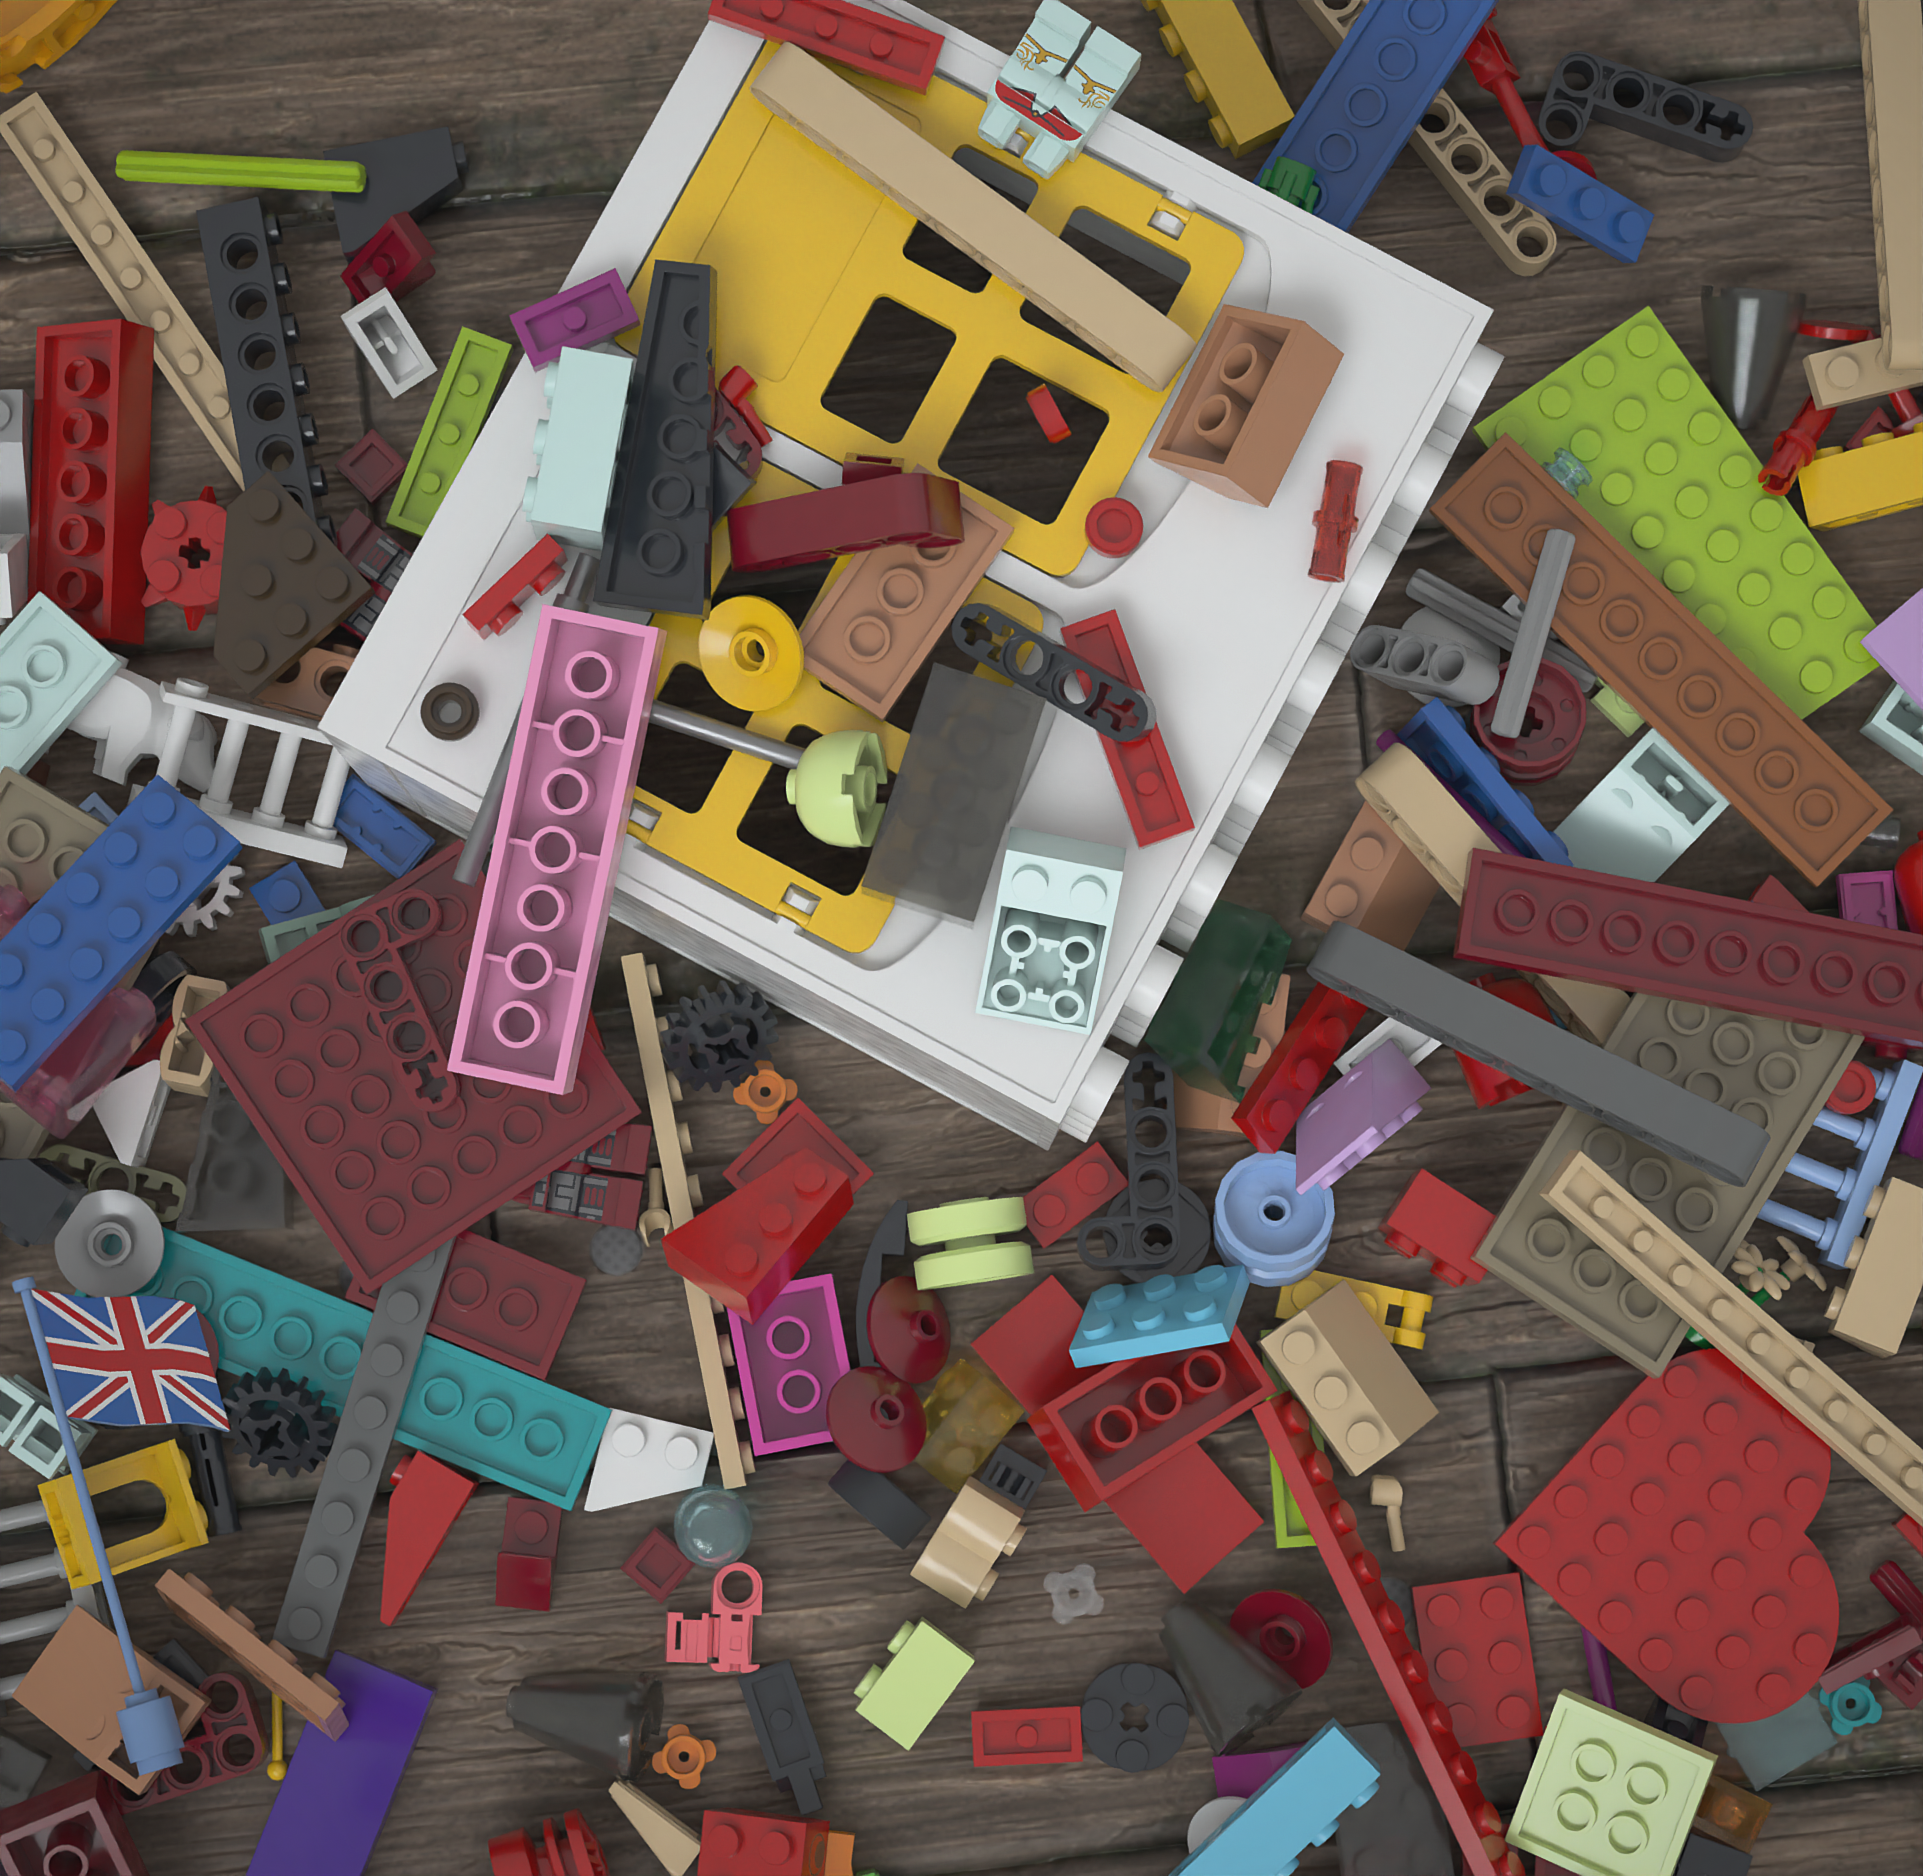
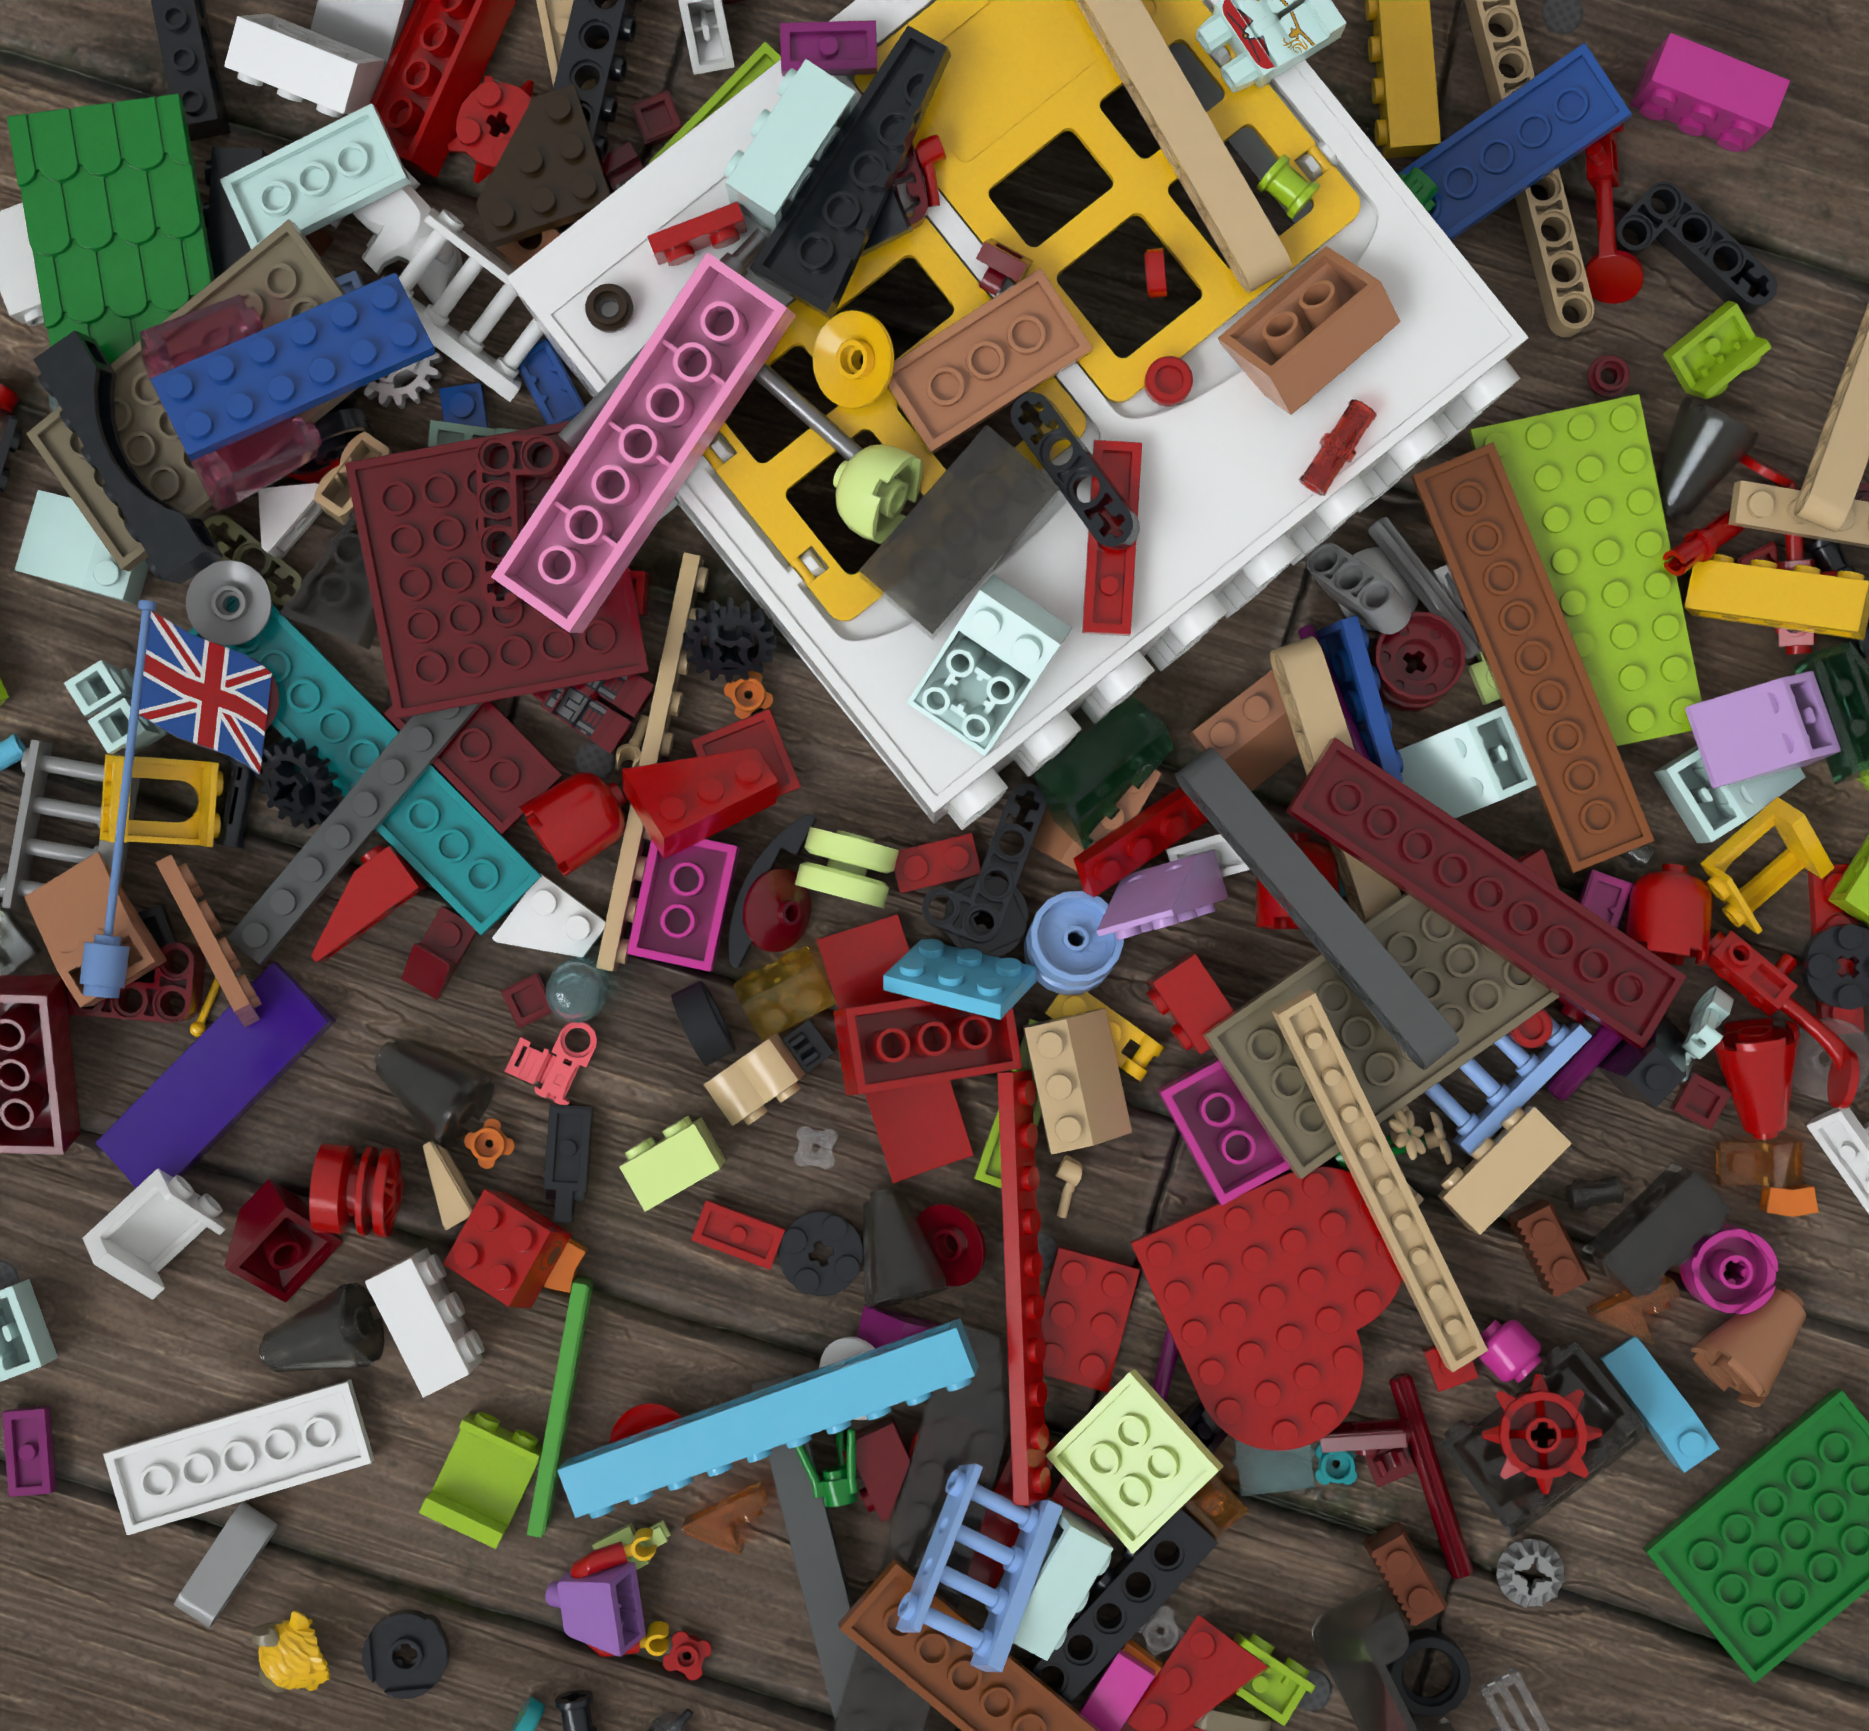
camera: 25 degrees right, 5 degrees up
(627, 1324) = (577, 819): none -> red cylinder
(846, 520) = (968, 288): dark red beam -> none
(862, 1430) = (709, 969): dark red dish -> none
(1153, 257) = (1288, 186): none -> lime bush
(1533, 633) = (1448, 598): light grey axle -> none
(1543, 1365) = (1221, 1131): none -> dark pink brick
(1568, 471) = (1526, 491): clear light blue bush -> none
(1579, 203) = (1621, 297): blue plate -> none
(1609, 283) = (1619, 370): none -> dark red plate
(1715, 219) = (1716, 352): none -> lime bracket

